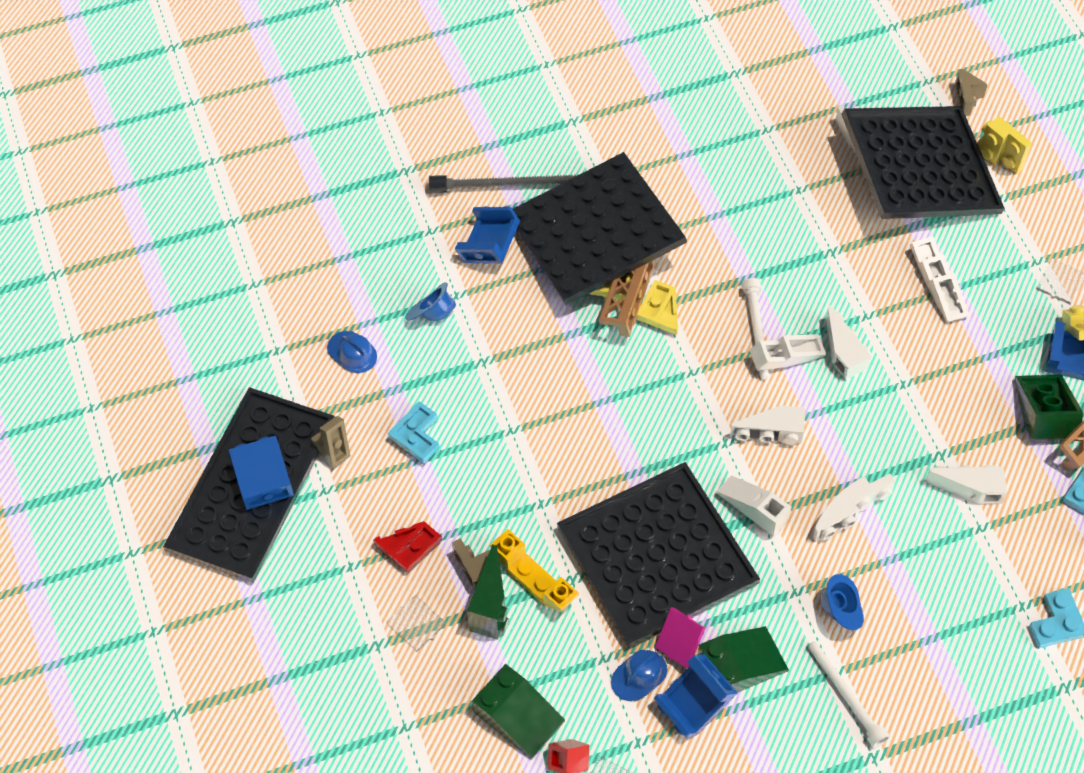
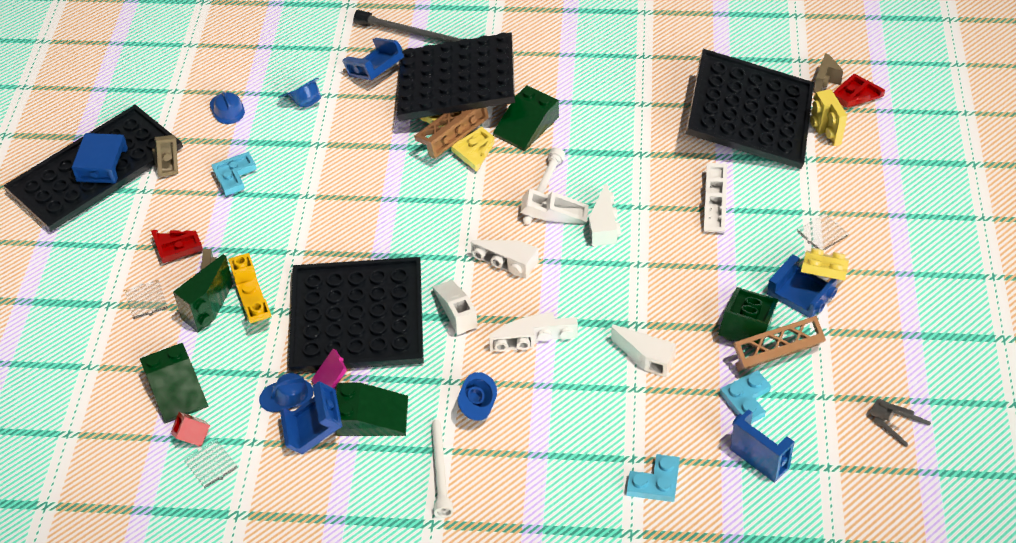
camera: 25 degrees right, 10 degrees down
(696, 260) = (527, 118): none -> dark green slope
(1008, 101) = (857, 91): none -> red wing

